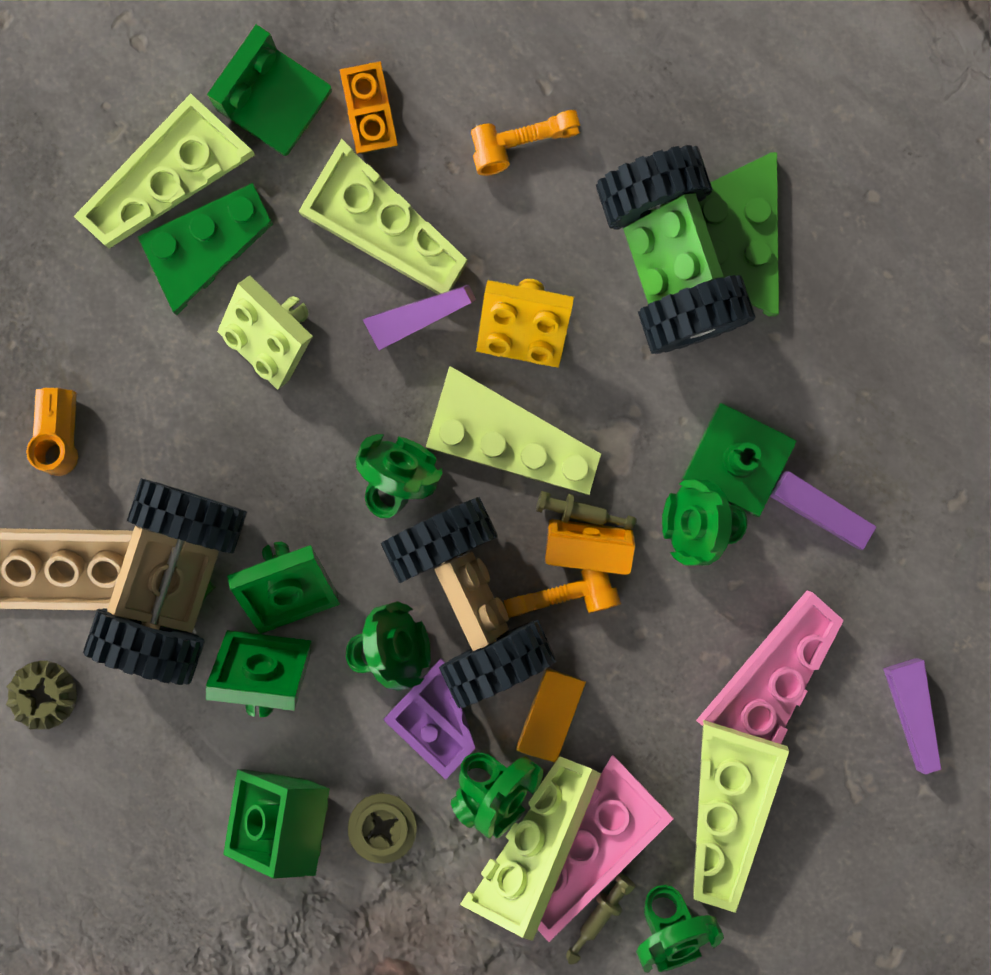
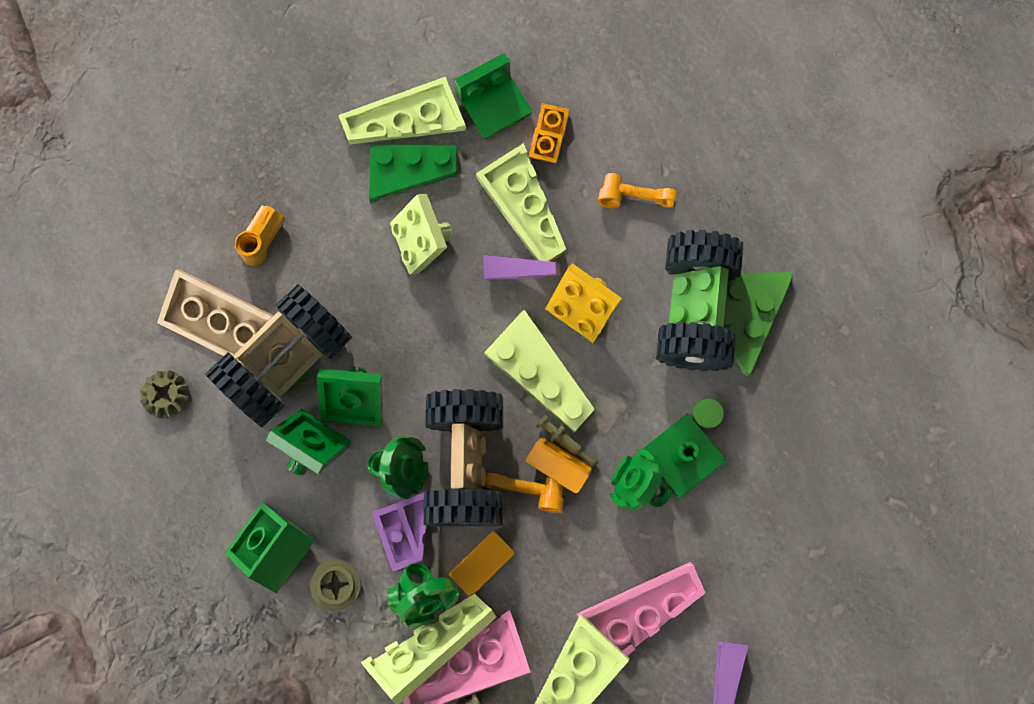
camera: 25 degrees right, 10 degrees down
(397, 469) = (461, 357): green tile -> none
(746, 391) = (707, 413): none -> bright green tile
(822, 510) = (723, 514): medium lavender piece -> none

